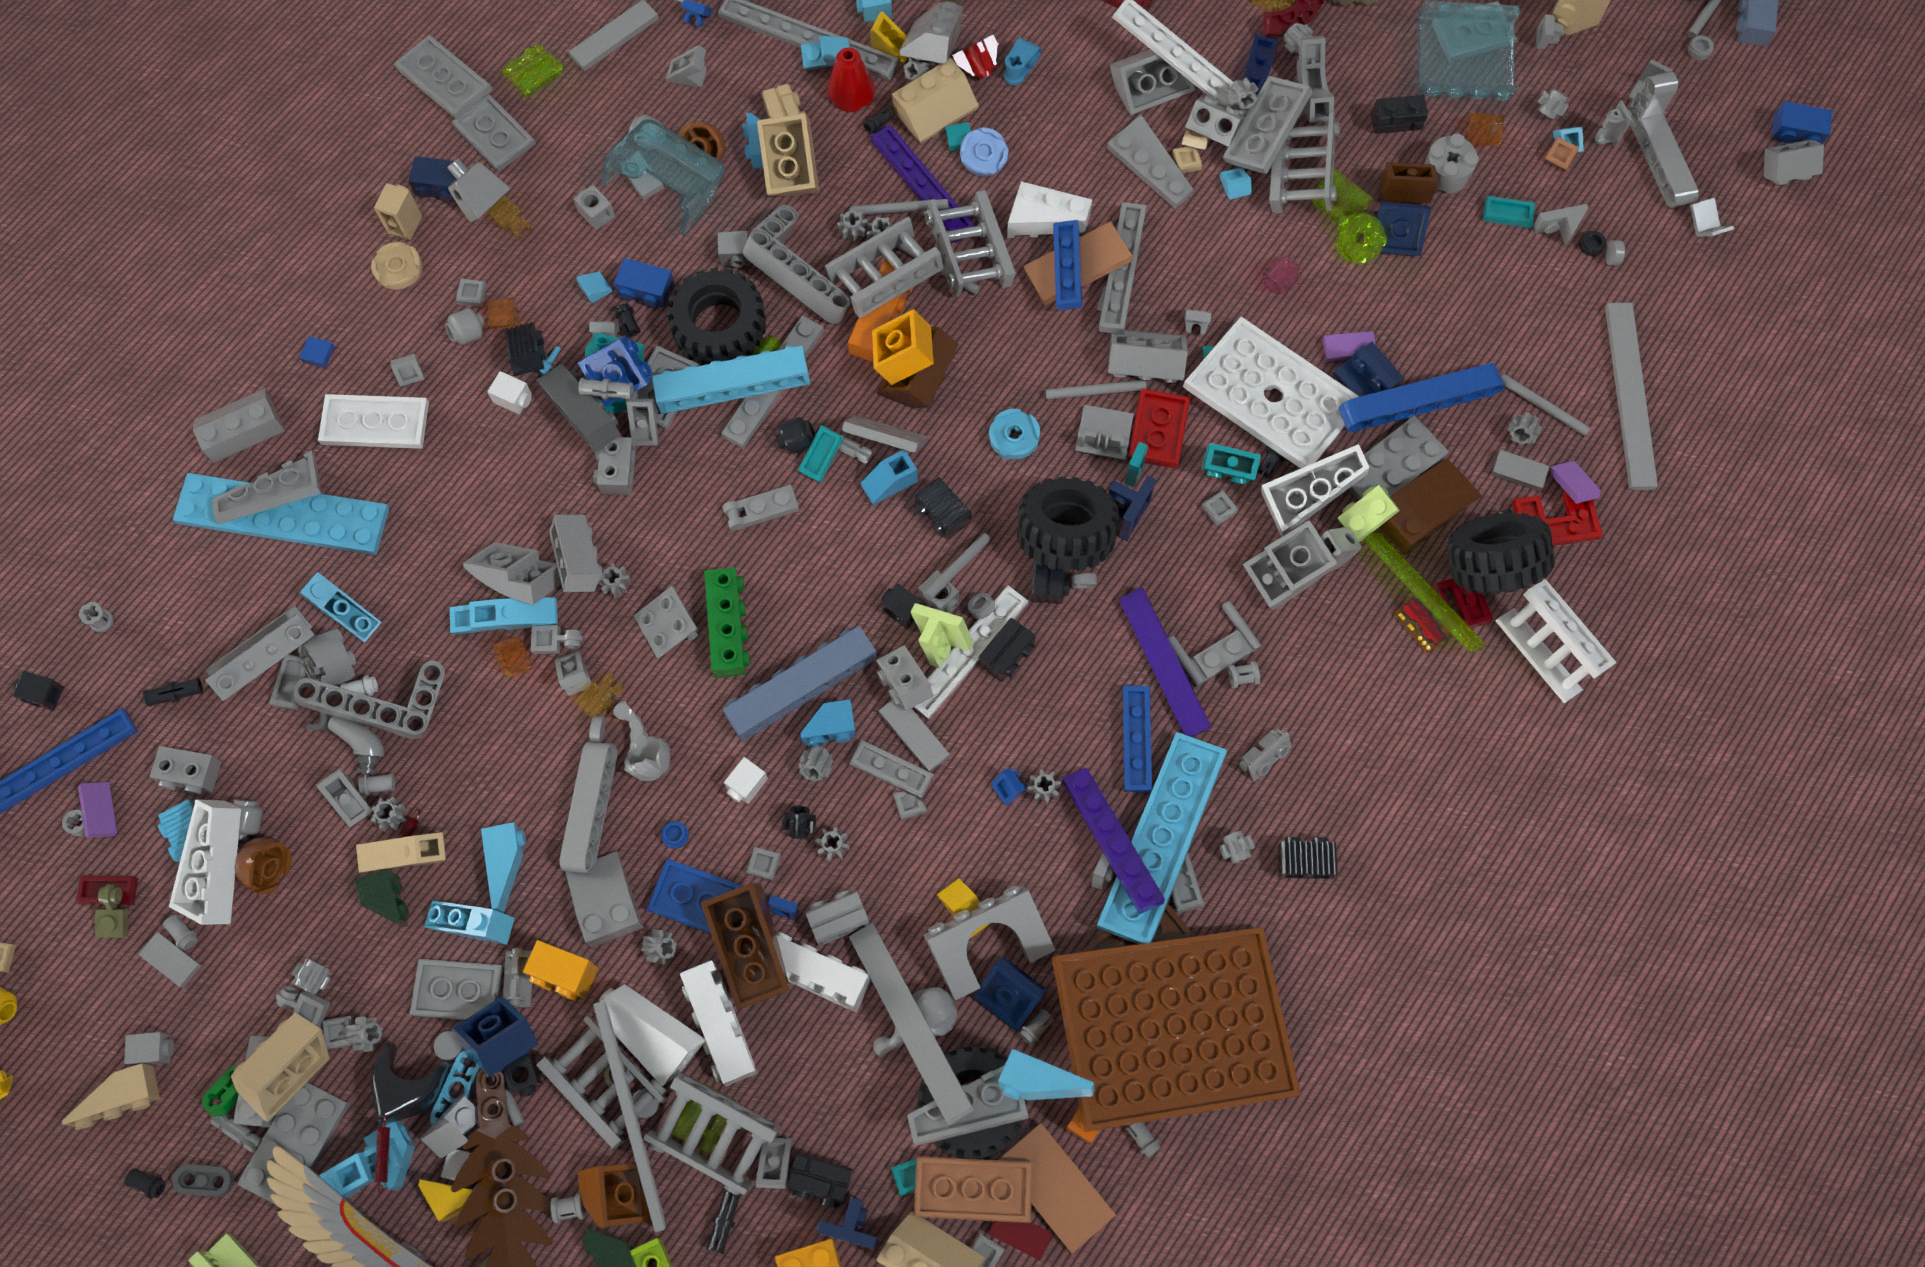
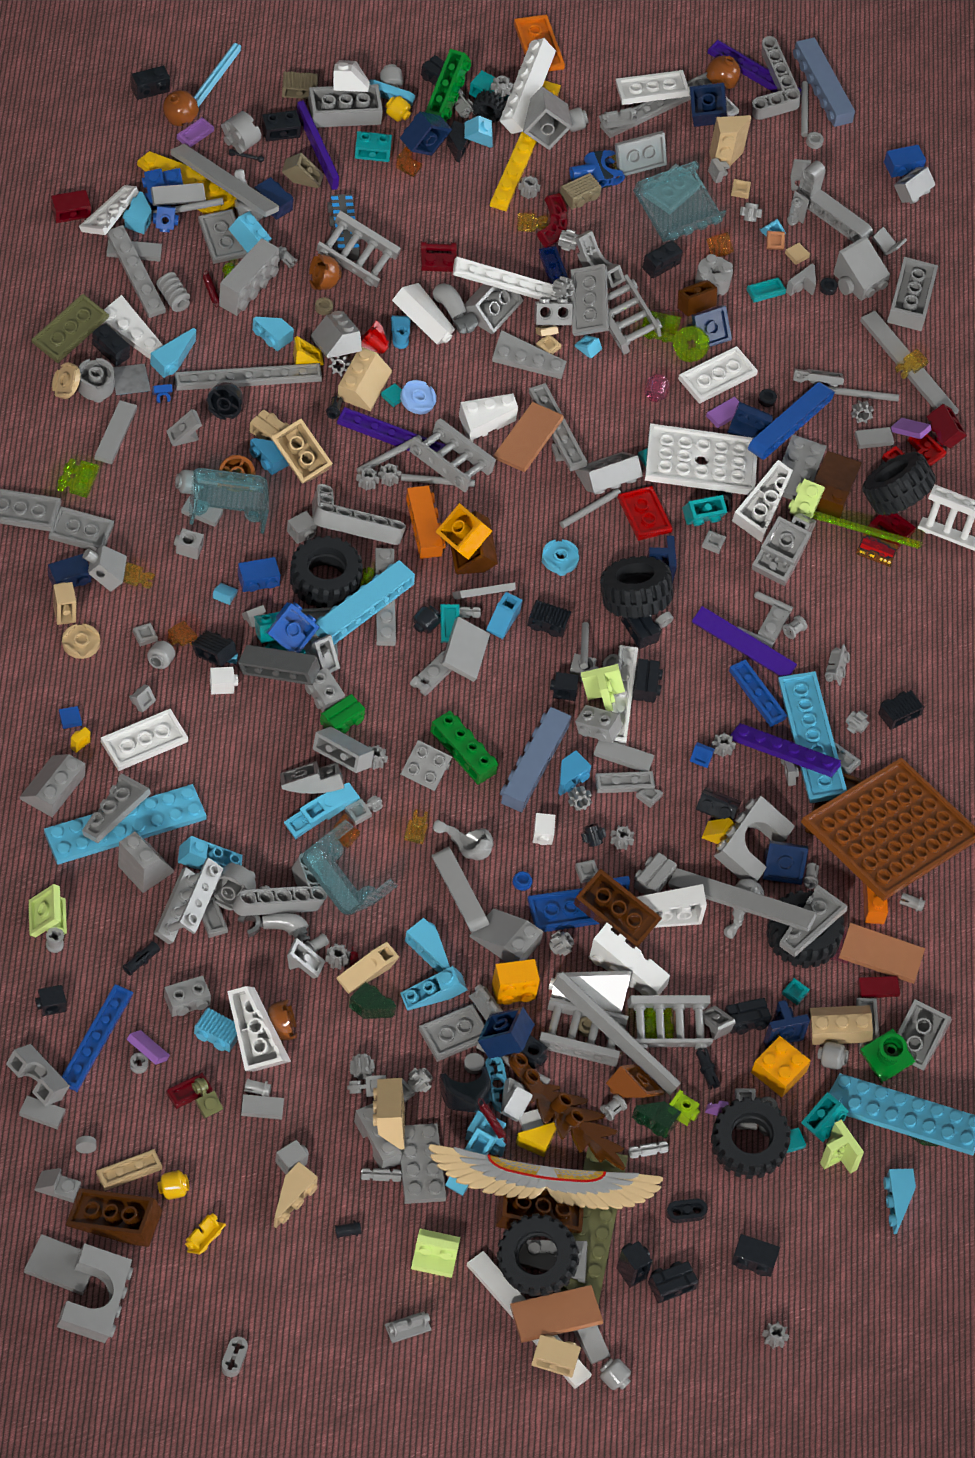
camera: 40 degrees left, 15 degrees down
(114, 582) = (47, 911): none -> yellowish green bracket
(204, 1180) = (382, 1210): dark grey plate -> none
(222, 1090) = (363, 1153): green beam -> none
(254, 572) = (142, 862): none -> light grey slope
(303, 385) = (80, 739): none -> yellow plate
(447, 713) = (321, 863): none -> clear light blue windscreen
(572, 673) = (390, 821): light grey slope -> none
(597, 729) = (431, 845): light grey tile -> none
(606, 388) = (296, 640): light grey pin -> none
(613, 508) = (343, 714): none -> green brick
(627, 319) = (259, 599): black pin -> none
(755, 52) = (225, 400): none -> black cylinder
(815, 496) = (465, 649): none -> light grey tile
(822, 53) = (270, 381): medium azure slope -> none
(850, 82) = (302, 391): red cone -> none
(893, 284) = (424, 503): light grey fence -> none
(973, 1189) = (837, 975): nougat tile -> none
(979, 867) = (718, 804): none -> black brick
(1038, 1080) = (841, 881): medium azure slope -> none
(1059, 50) = (424, 312): none -> white slope
(1067, 265) = (526, 438): blue plate -> none
(1100, 58) = (454, 305): none -> light grey piece
(1104, 432) = (614, 530): light grey hinge -> none
(1136, 464) = (650, 535): teal tile -> none
(1197, 317) = (623, 436): light grey tile -> none
(1371, 293) = (717, 374): none -> white plate
(1415, 352) = (767, 398): none -> black tile
(1500, 355) = (815, 376): none -> light grey hinge
(1563, 68) = (741, 188): none -> tan tile
(1580, 183) = (797, 253): none -> tan tile
(1624, 501) = (946, 426): none -> dark red brick
(1636, 395) = (912, 362): none -> clear yellow plate
(1649, 239) = (863, 267): none -> light grey slope
(1695, 303) = (912, 294): none -> light grey brick

